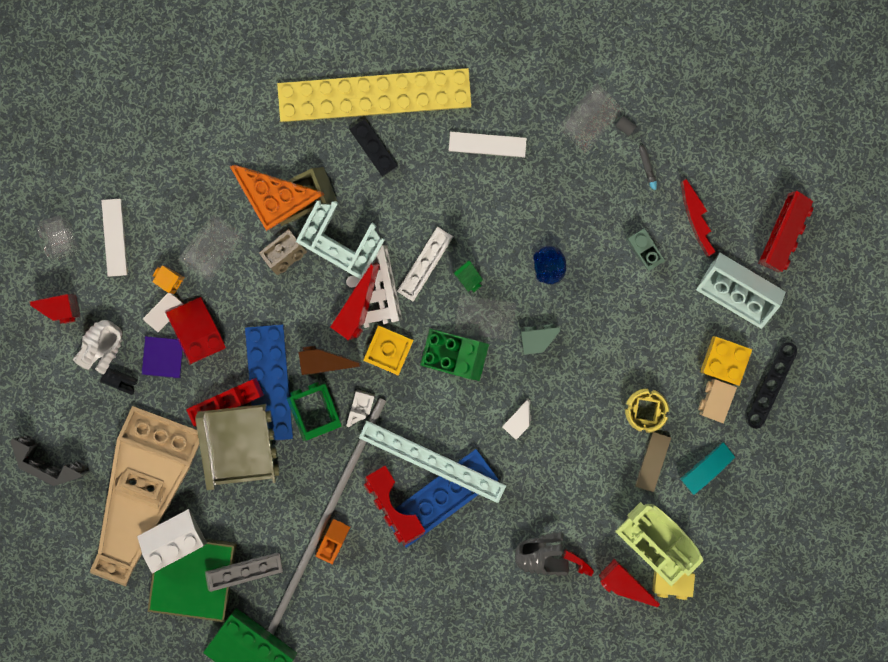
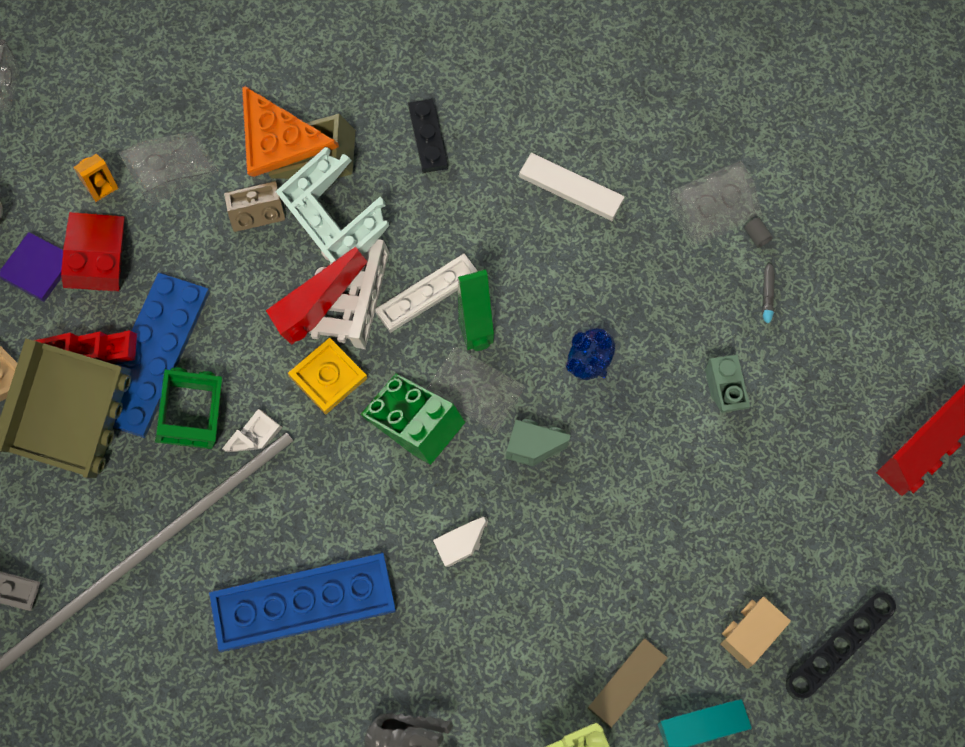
camera: 30 degrees right, 20 degrees down
(114, 237) = (60, 110): white tile -> none
(157, 316) = (56, 213): white slope -> none
(320, 360) = (231, 347): reddish brown slope -> none
(332, 541) = (121, 596): orange slope -> none
(374, 95) = (458, 80): light yellow plate -> none
(406, 526) = (232, 612): red arch -> none
(432, 461) = (316, 546): light aqua tile -> none
(660, 411) = (657, 582): light yellow piece -> none
(694, 210) = (813, 369): red slope -> none
(726, 360) = (788, 579): yellow brick -> none
(741, 291) = (840, 495): light aqua slope -> none

